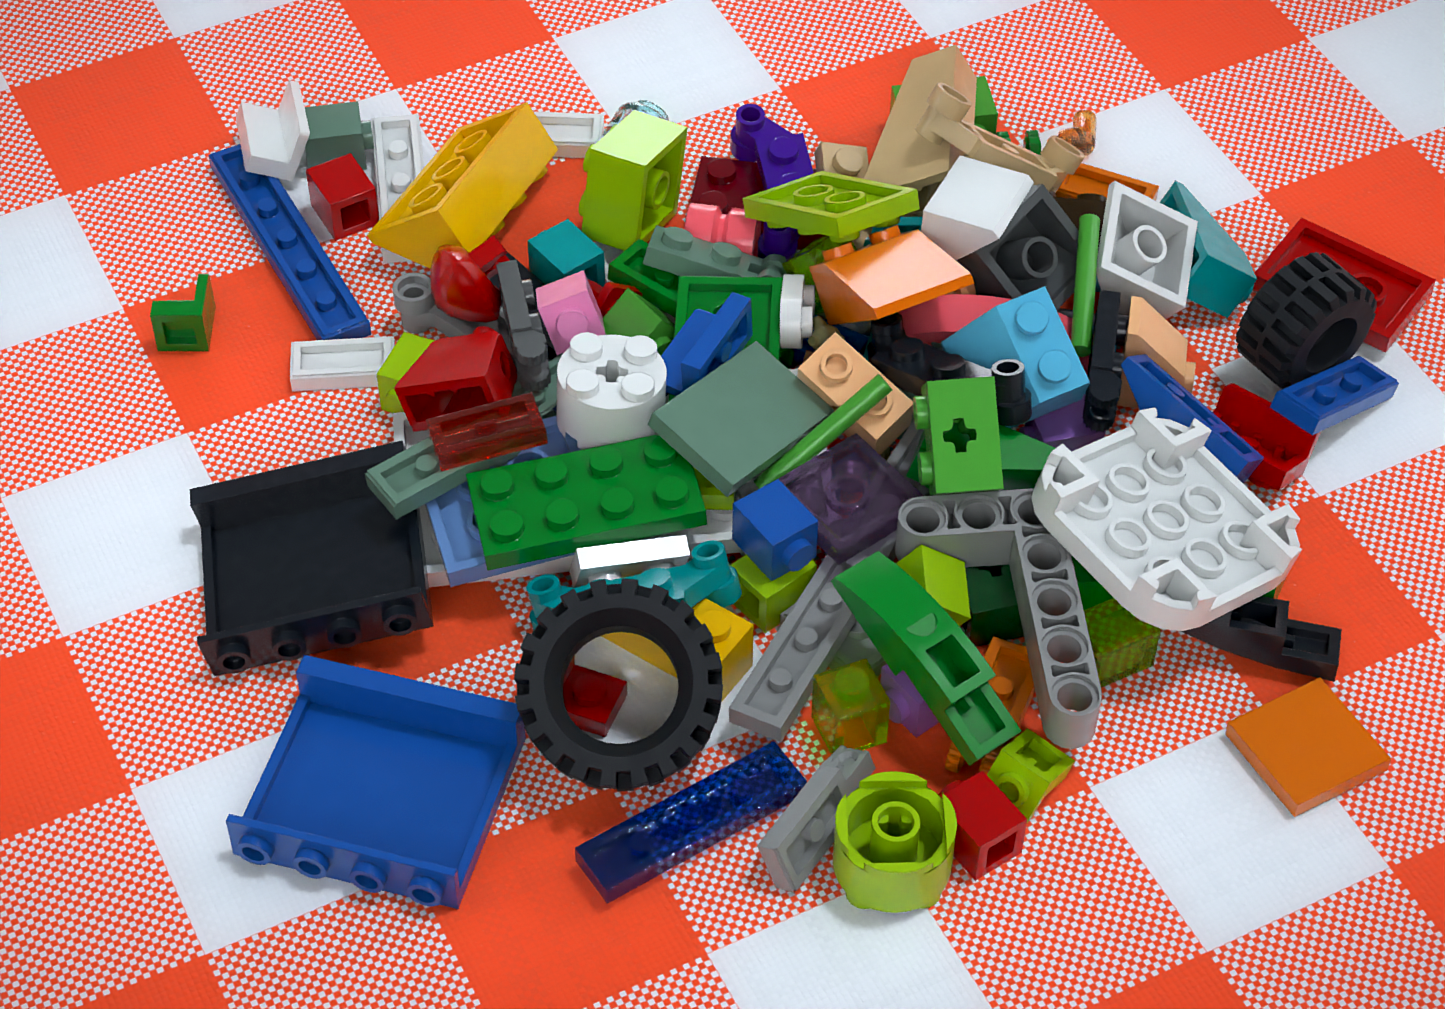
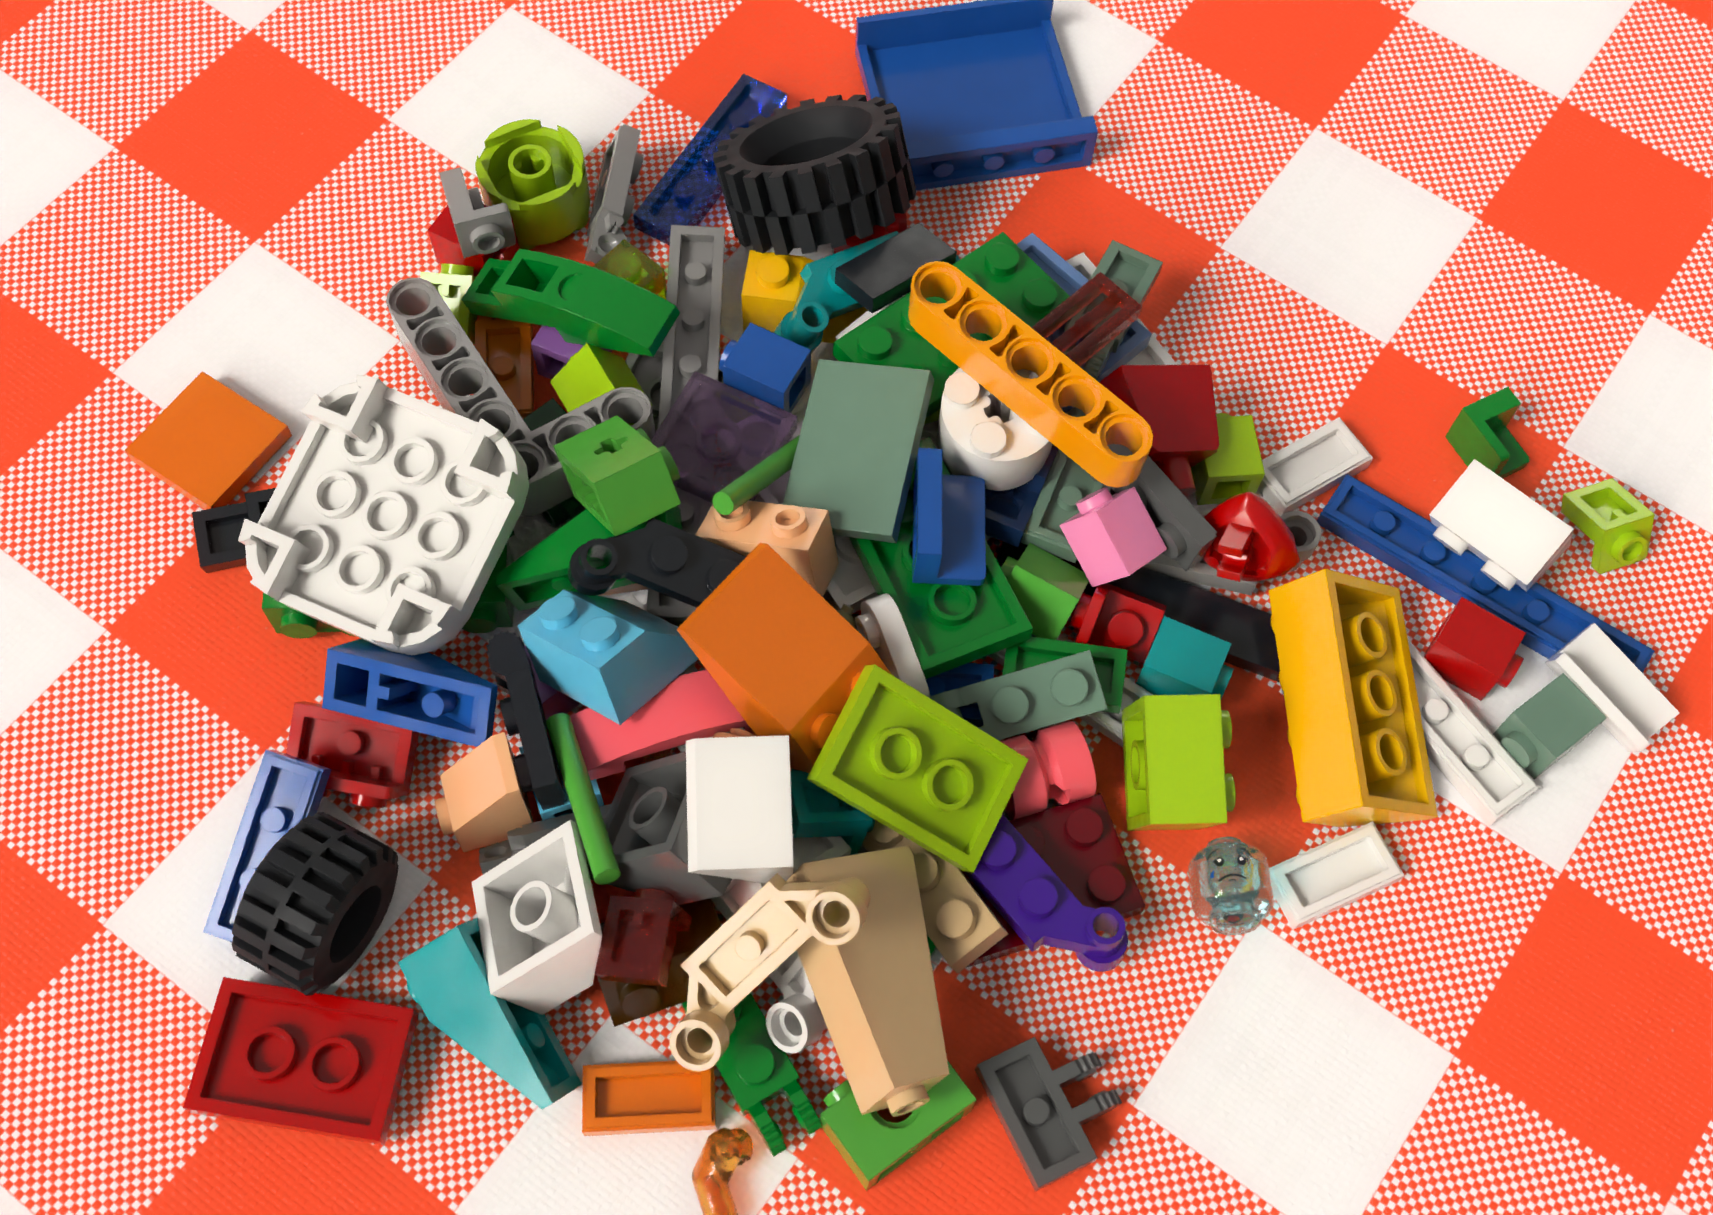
camera: 150 degrees right, 15 degrees up
(155, 231) = (1613, 521): none -> lime bracket
(251, 238) = (1500, 527): none -> white slope
(306, 563) = (1170, 205): black panel -> none
(589, 346) = (1037, 399): none -> light orange beam
(608, 553) = (888, 268): none -> black tile
(843, 91) = (1037, 1113): none -> dark grey hinge
(981, 766) = (477, 227): none -> light grey bracket
(1081, 190) = (640, 937): none -> clear red bracket

